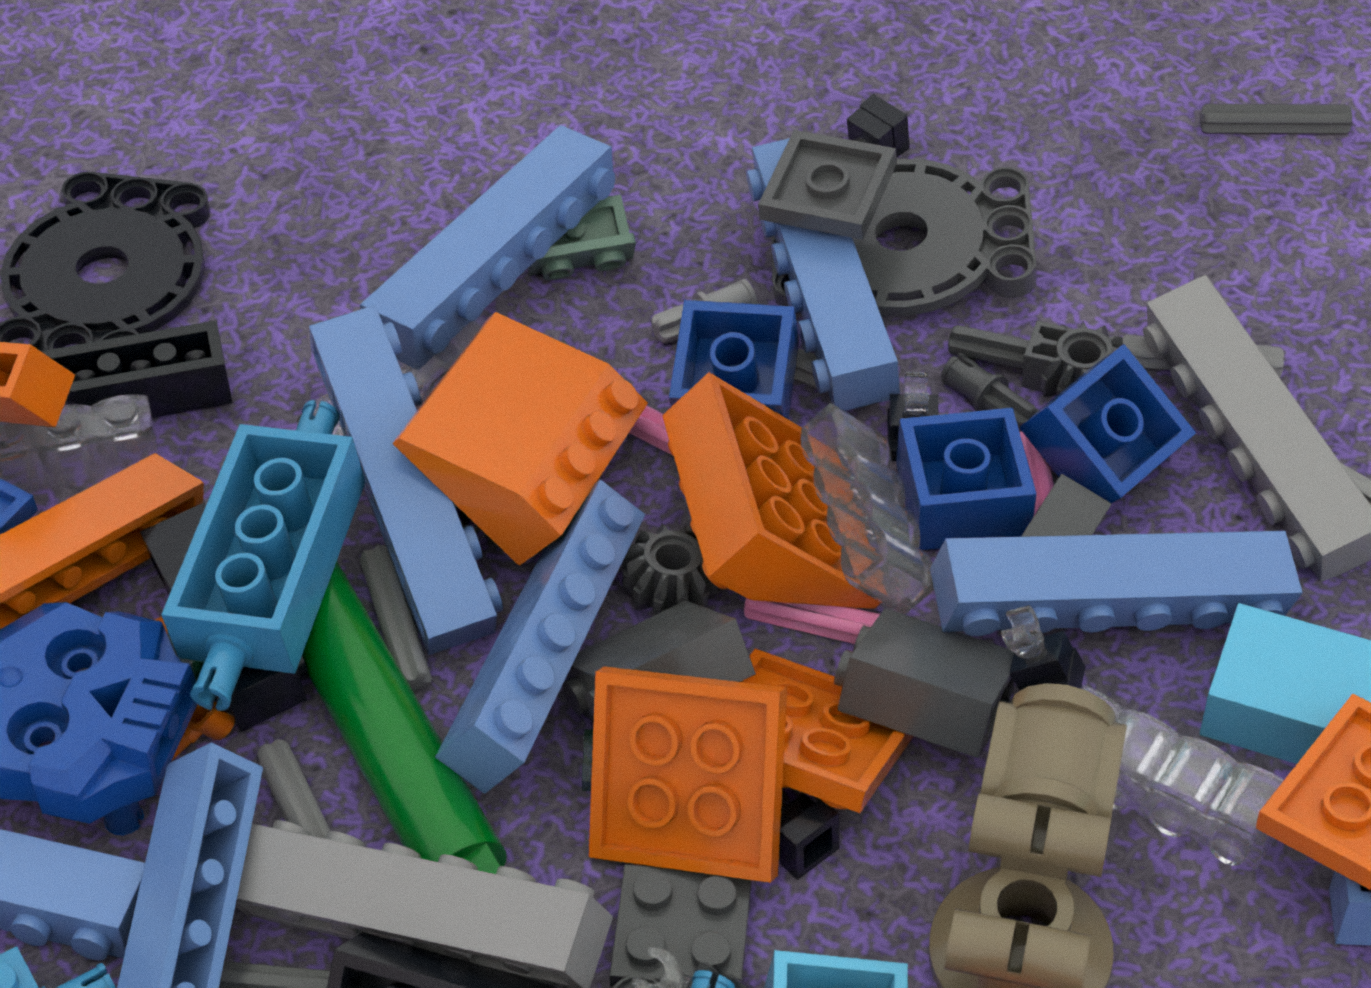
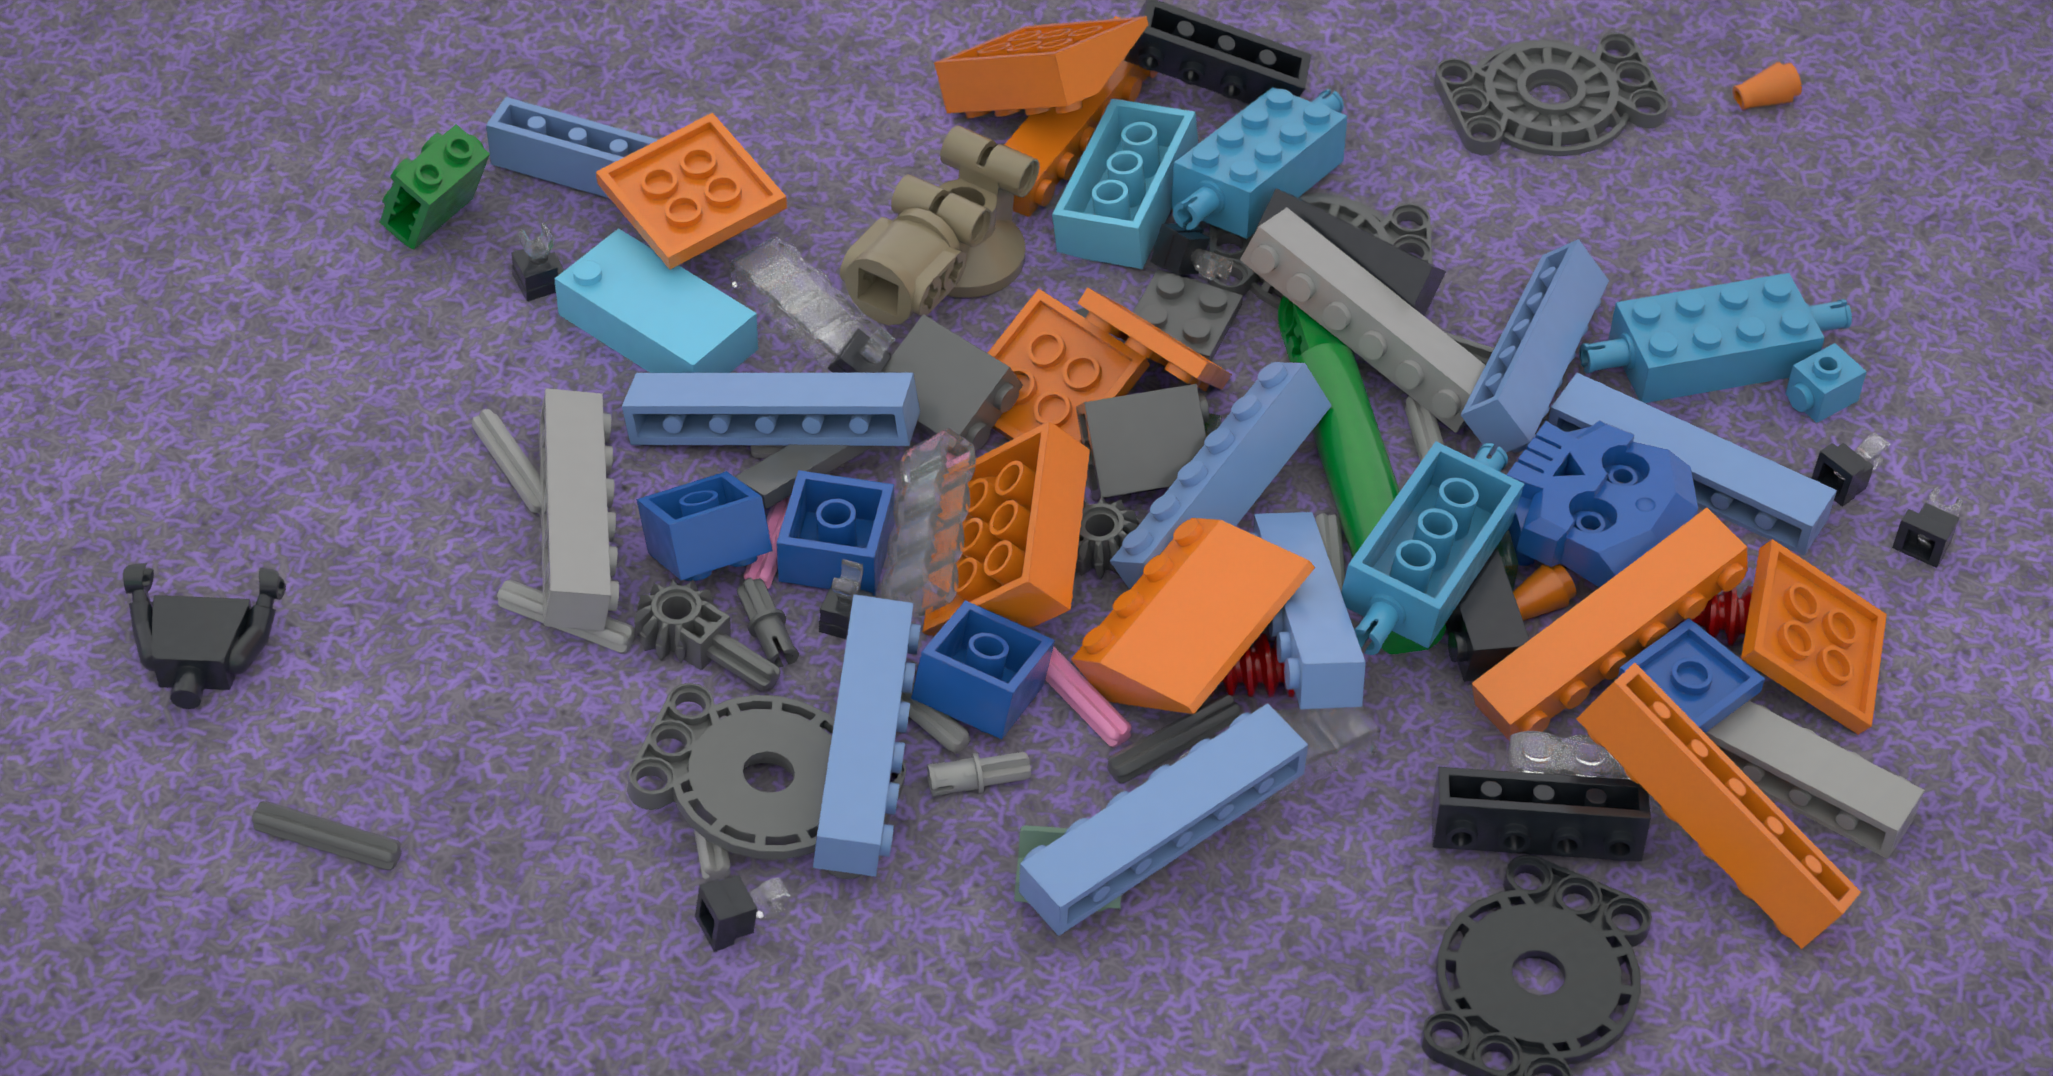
camera: 165 degrees left, 0 degrees up
(828, 184) = (837, 749): dark grey plate -> none

